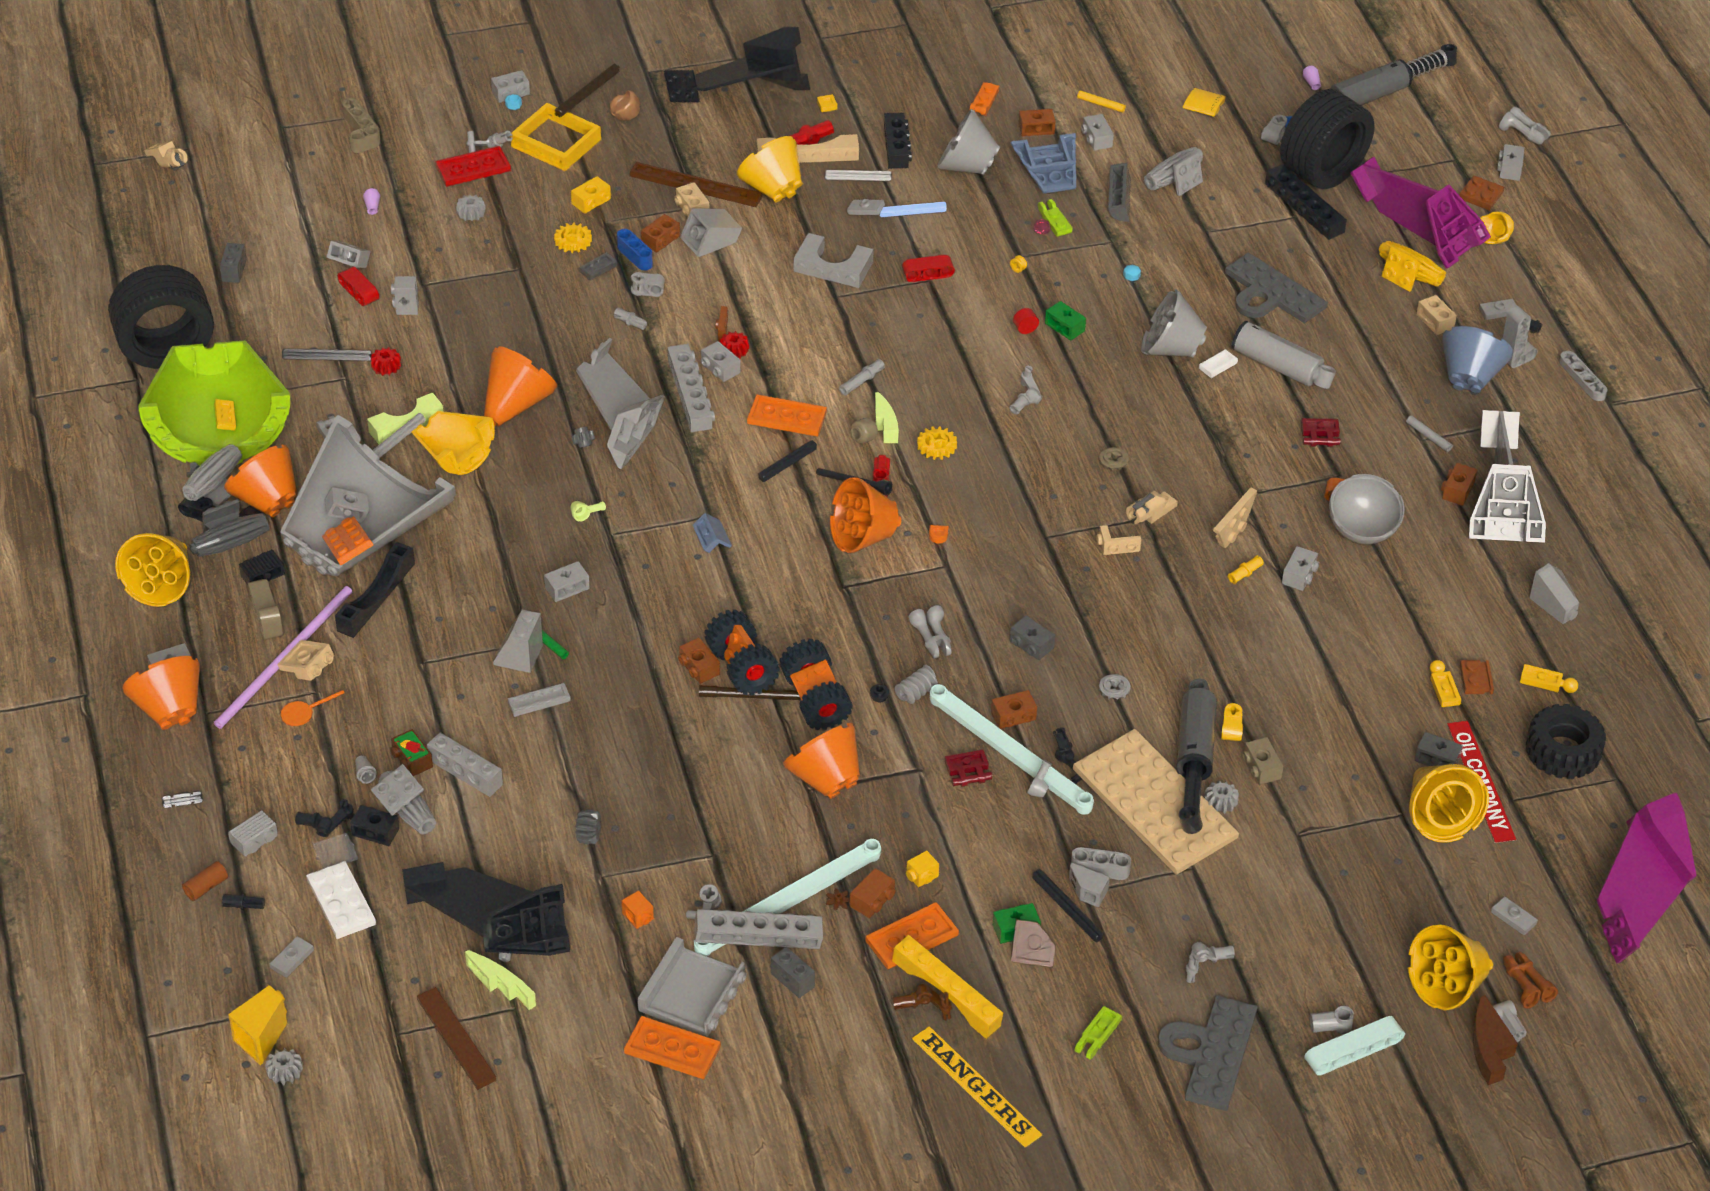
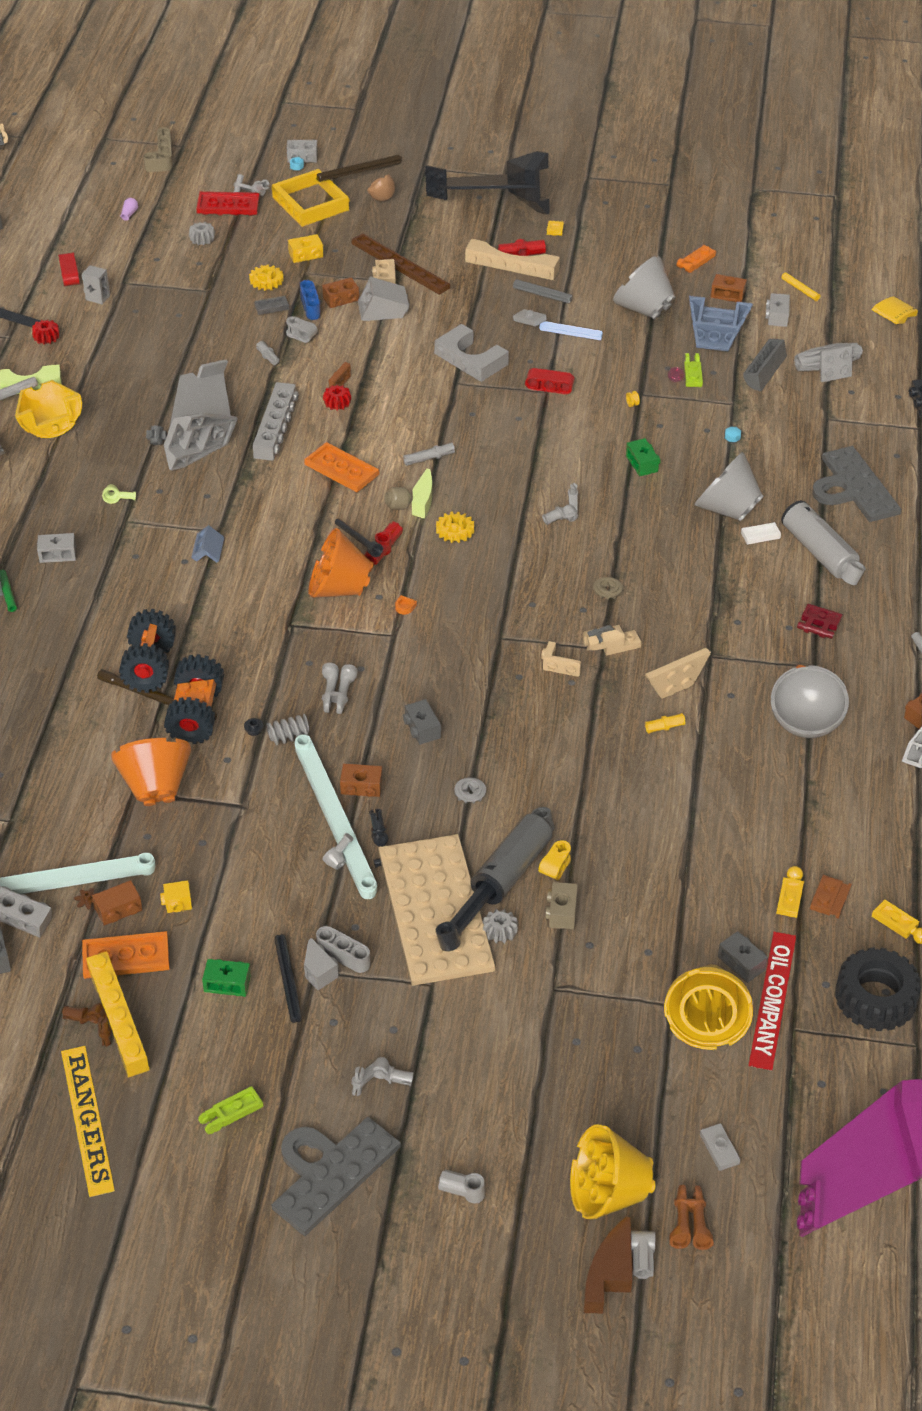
camera: 25 degrees right, 0 degrees up
(348, 254) = (77, 242): light grey brick -> none
(514, 385) = (121, 378): orange cone -> none
(699, 660) = (115, 644): dark orange brick -> none
(720, 361) = (315, 407): light grey brick -> none
(773, 169) = (464, 263): yellow cone -> none
(787, 461) = (316, 504): black axle -> none
(897, 140) = (594, 271): black brick -> none
(966, 763) = (284, 814): dark red plate -> none
(1026, 321) = (605, 447): red piece -> none
(1032, 944) = (224, 1002): plate -> none
(1300, 568) = (717, 738): light grey brick -> none
(1354, 1045) = (469, 1218): light aqua beam -> none

